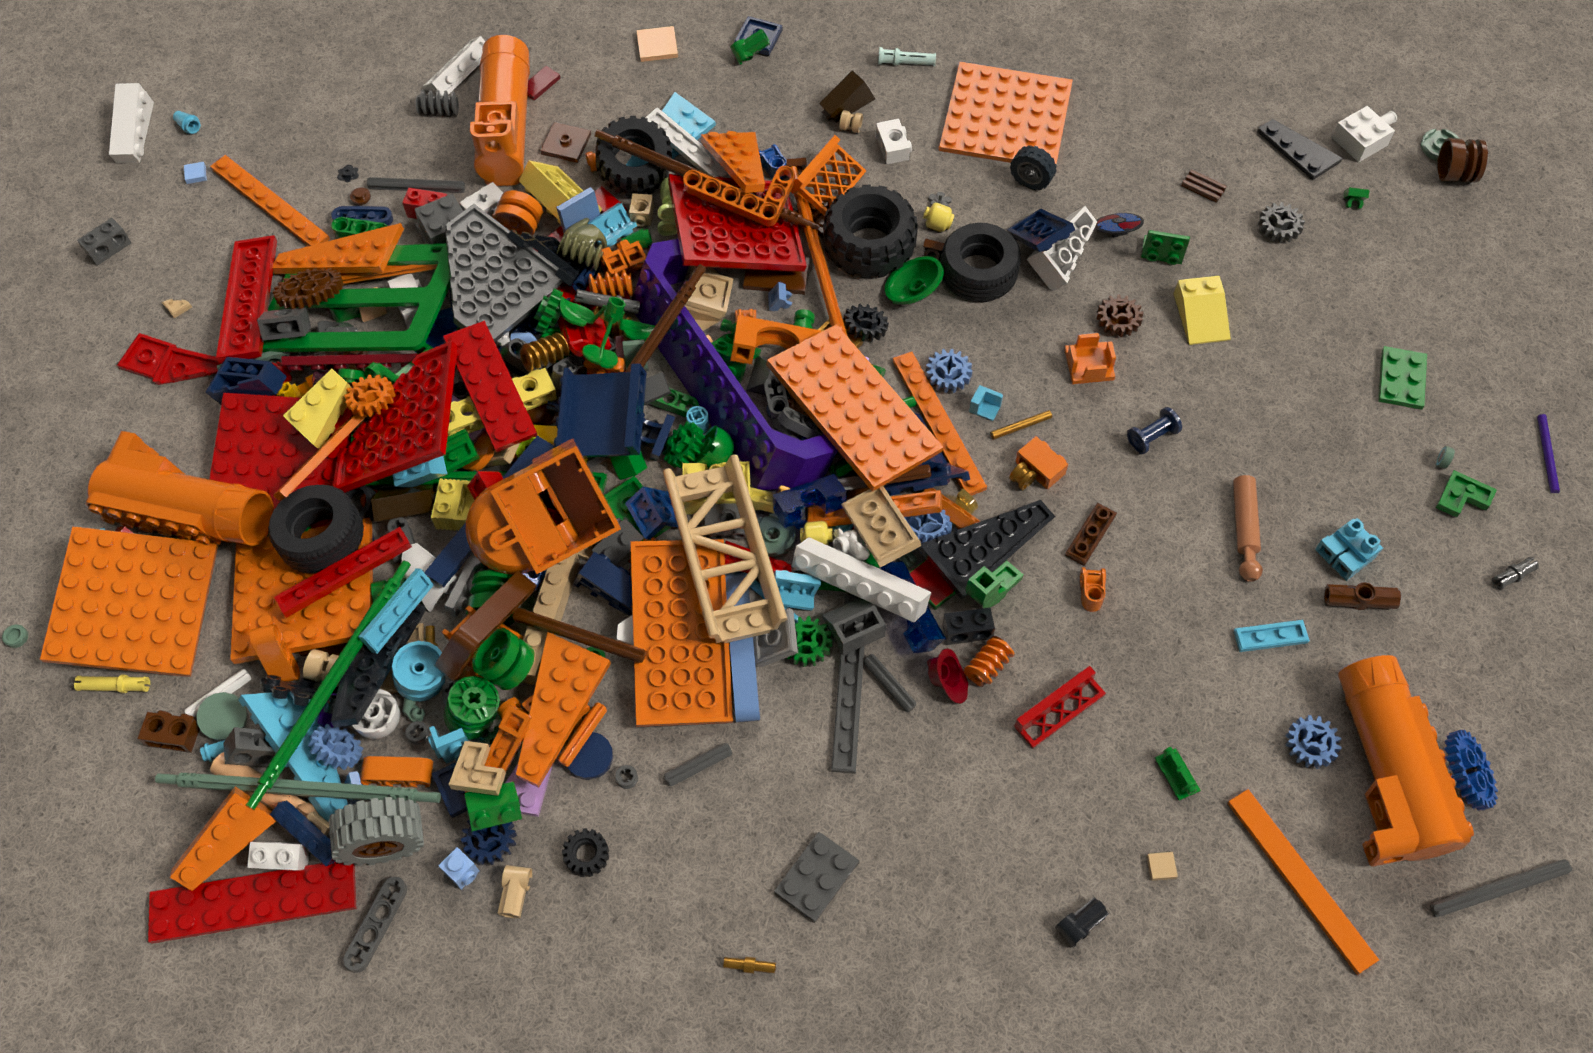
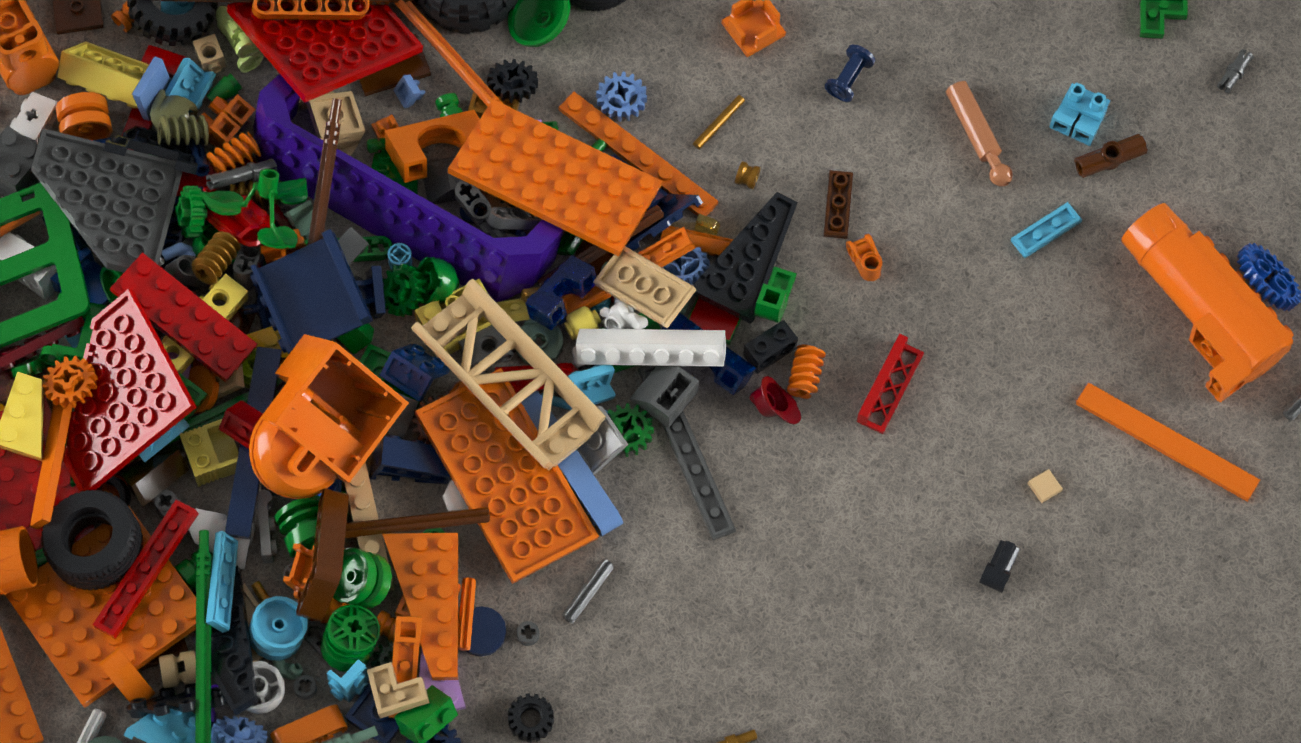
camera: 30 degrees left, 5 degrees up
(816, 877) = (749, 639): dark grey plate -> none
(889, 683) = (723, 433): dark grey axle -> none
(986, 403) = (675, 115): medium azure panel -> none
(1043, 461) = (759, 152): orange brick -> none
(1177, 773) = (1020, 397): green hinge -> none
(1313, 751) = (1121, 303): medium blue gear -> none

